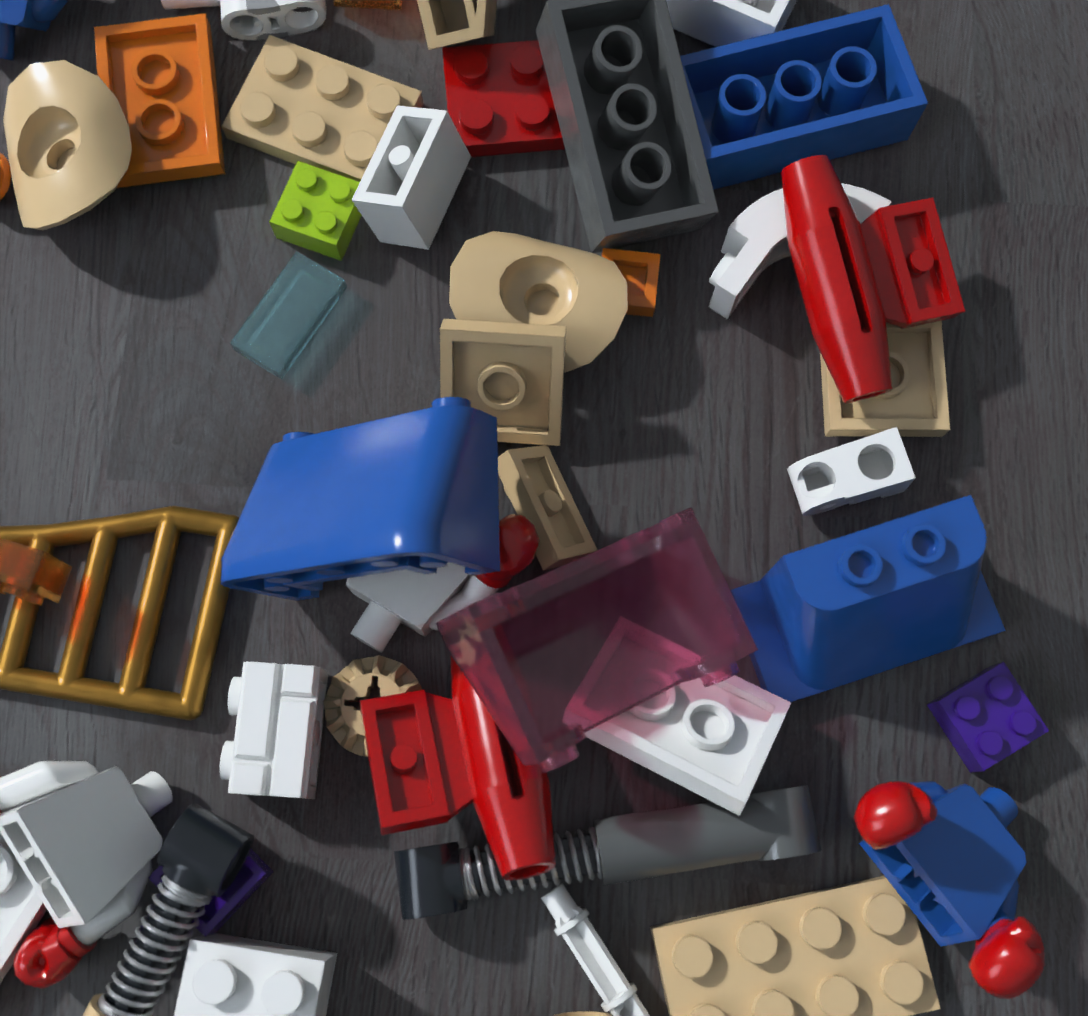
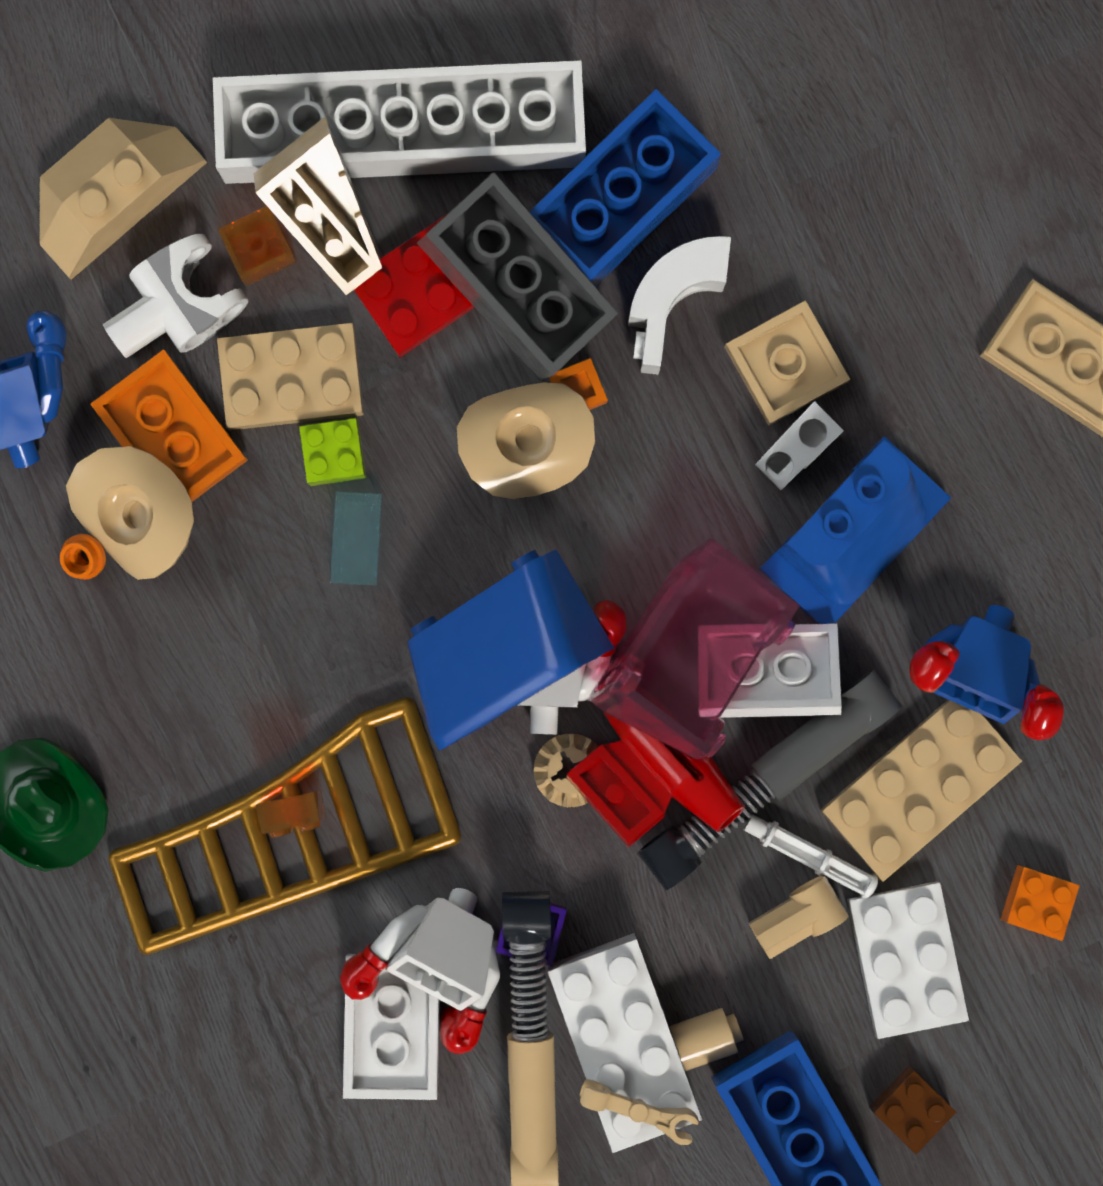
camera: 25 degrees left, 10 degrees up
(275, 730) = (519, 820): white brick -> none
(412, 177) = (389, 396): white brick -> none
(507, 373) = (536, 511): tan plate -> none
(542, 496) = (609, 578): tan plate -> none
(863, 274) = (739, 305): red plate -> none
(987, 718) = (966, 561): dark purple piece -> none

